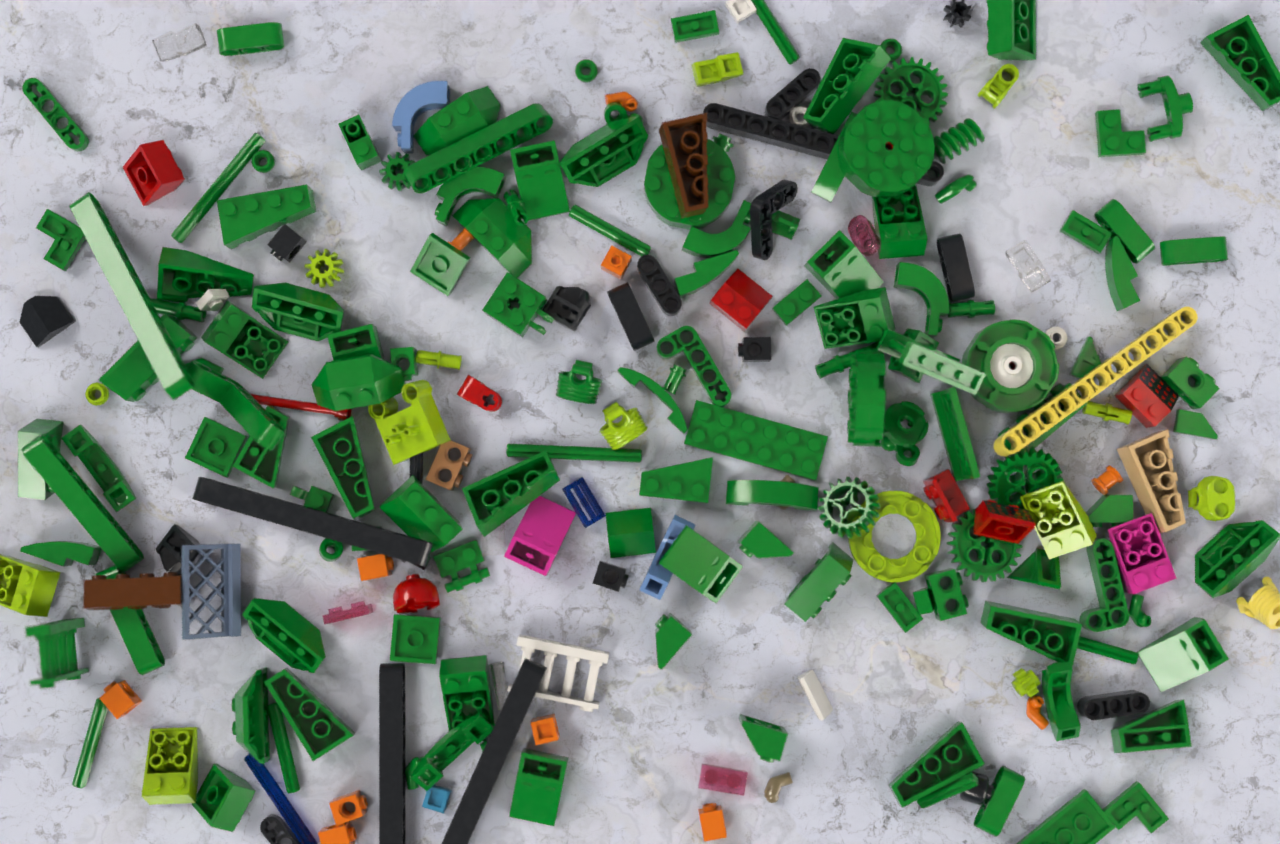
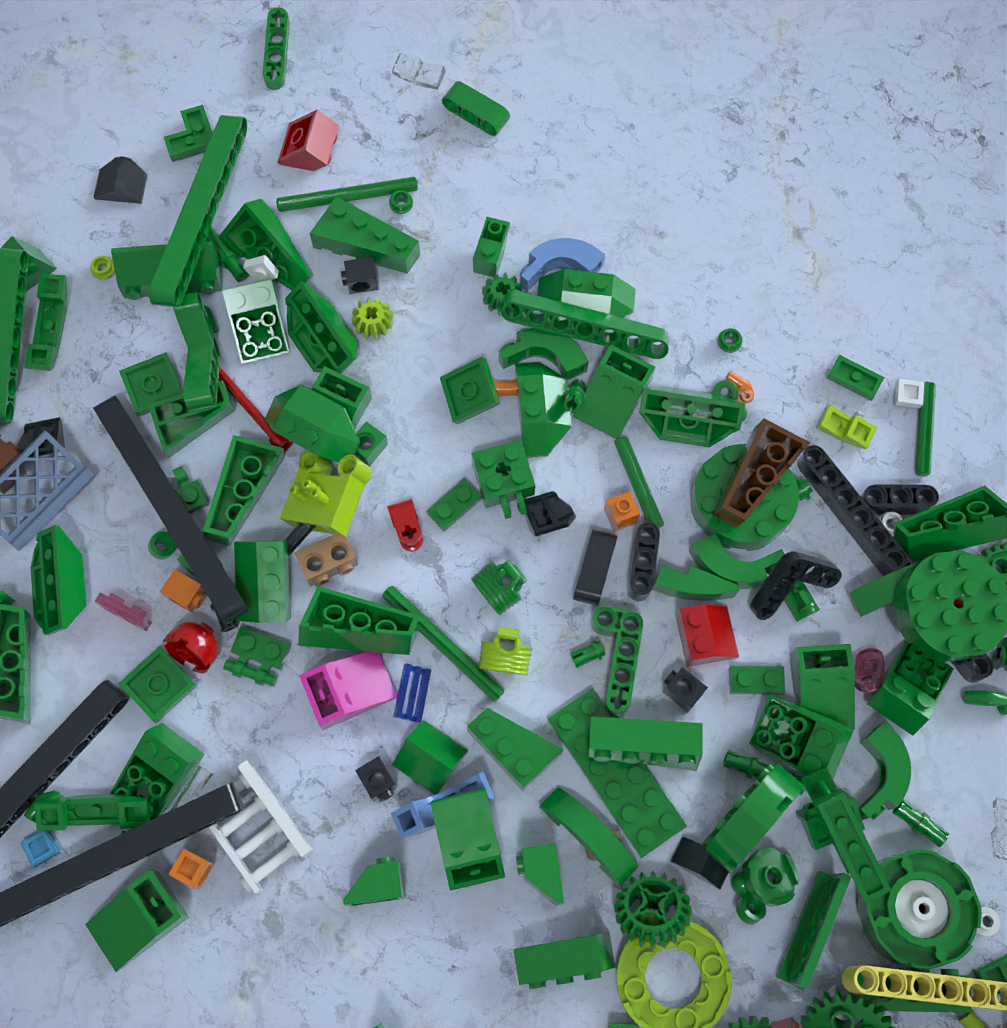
camera: 40 degrees right, 15 degrees down
(438, 359) = (398, 467): lime axle -> none
(499, 353) = (454, 505): none -> green plate
(634, 377) = (554, 623): green slope -> none
(760, 407) = (647, 742): none -> green wedge
(844, 453) = (695, 860): none -> black slope
(946, 496) = (756, 983): red bracket -> none
(955, 267) = (935, 772): black beam -> none

